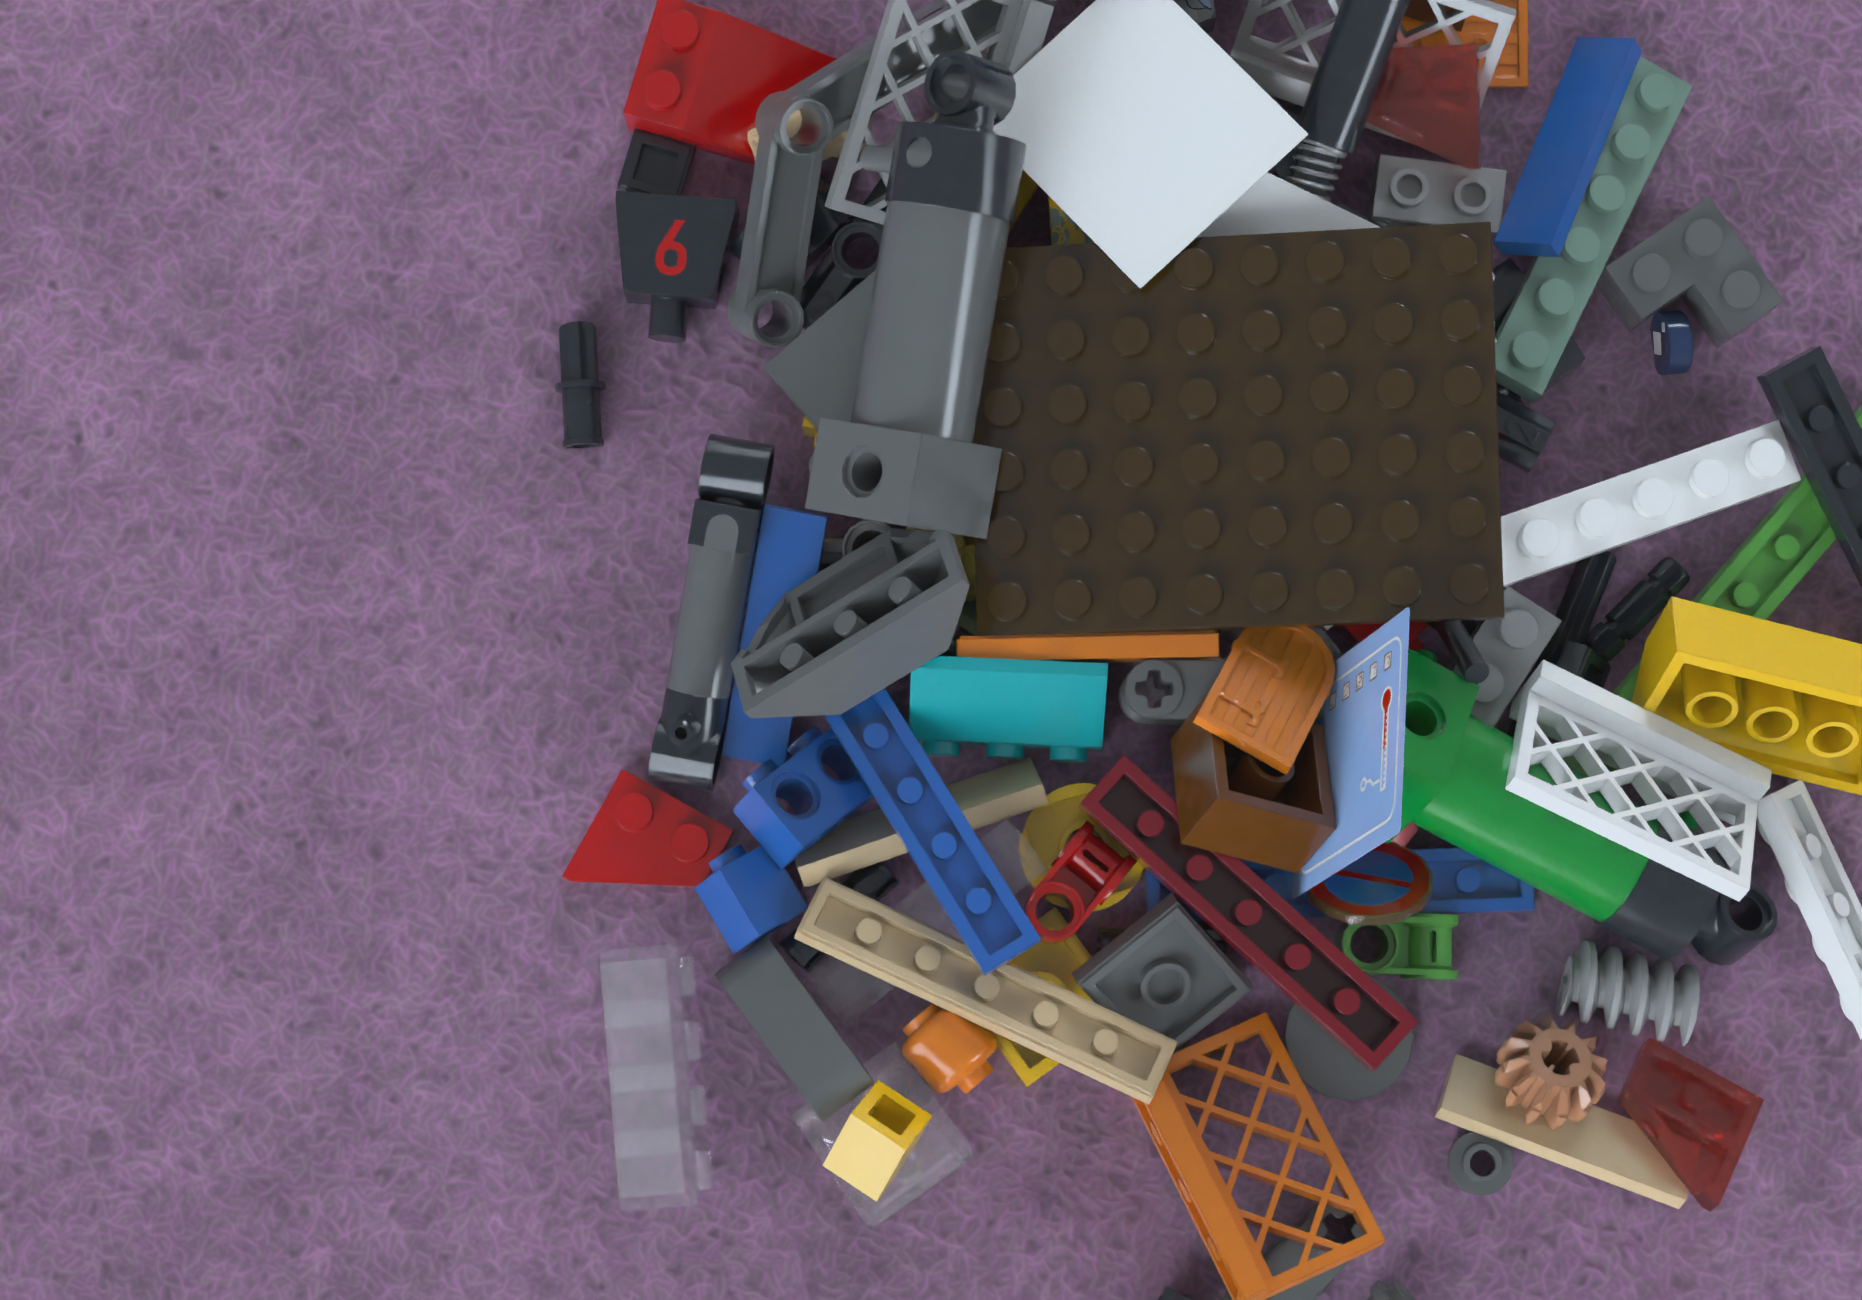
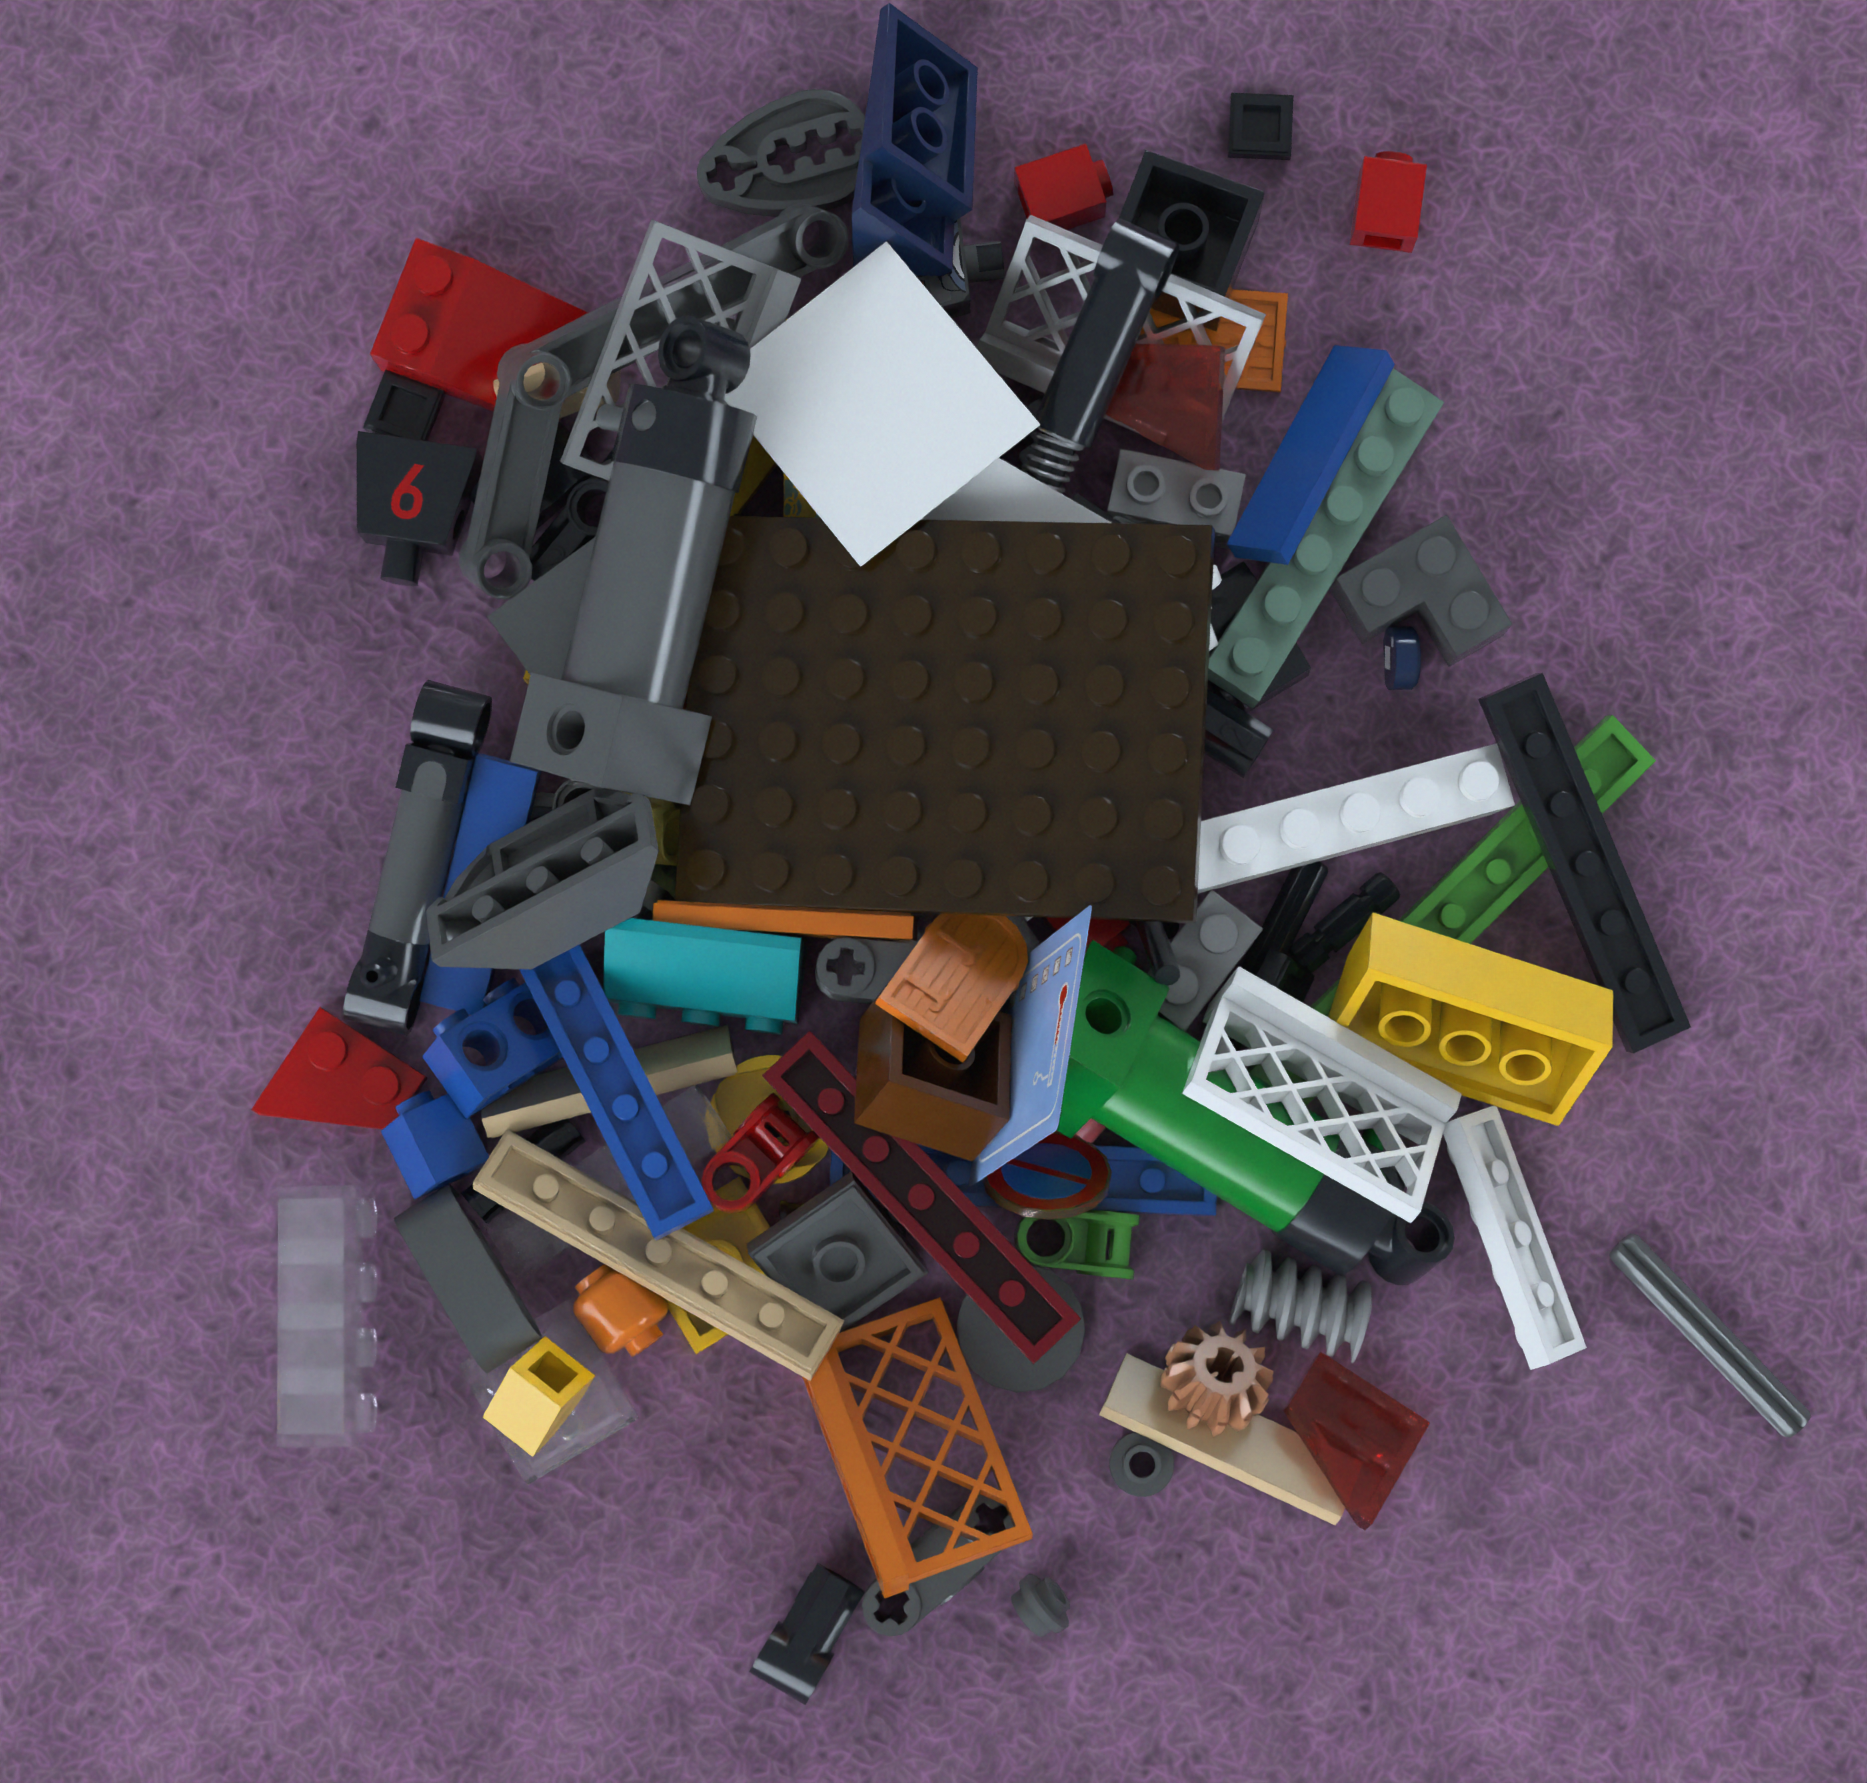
camera: 10 degrees right, 0 degrees up
(580, 385) = (310, 622): black axle -> none

